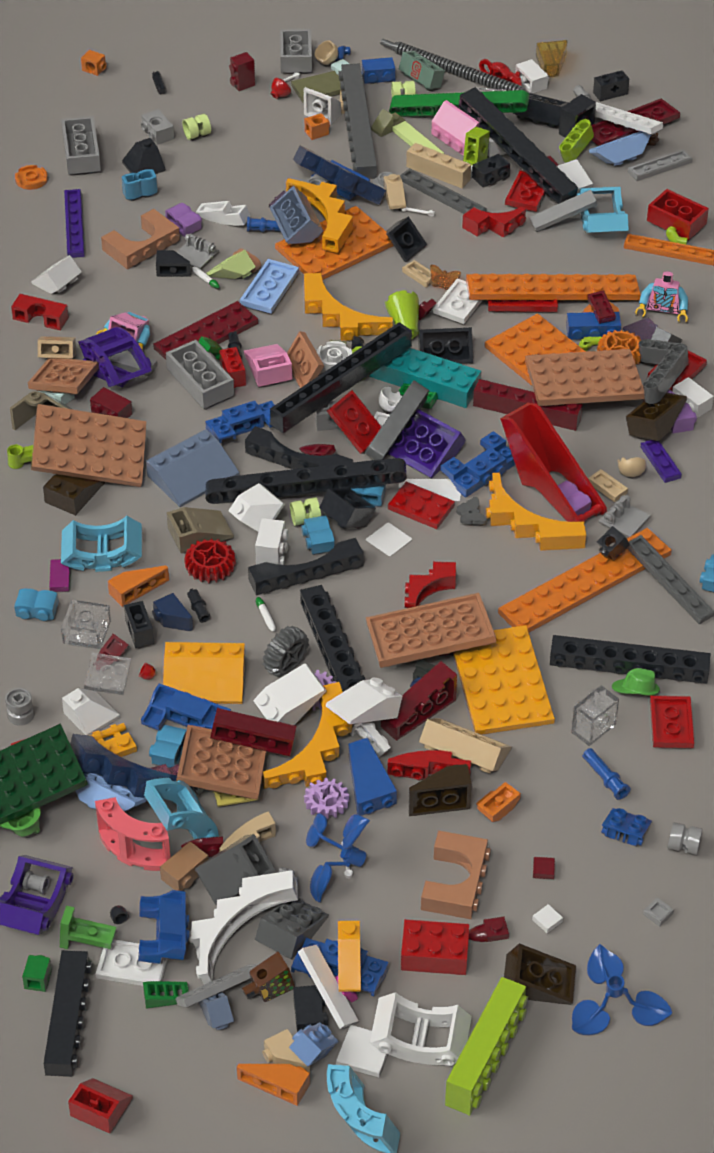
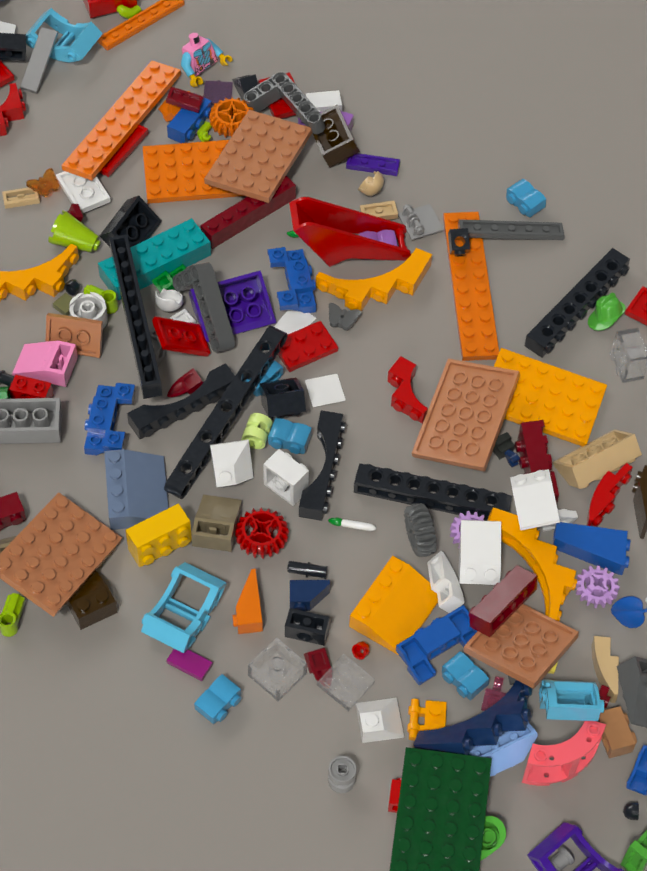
camera: 60 degrees left, 10 degrees up
(152, 495) = (159, 535): none -> yellow brick
(246, 693) = (445, 583): none -> white slope

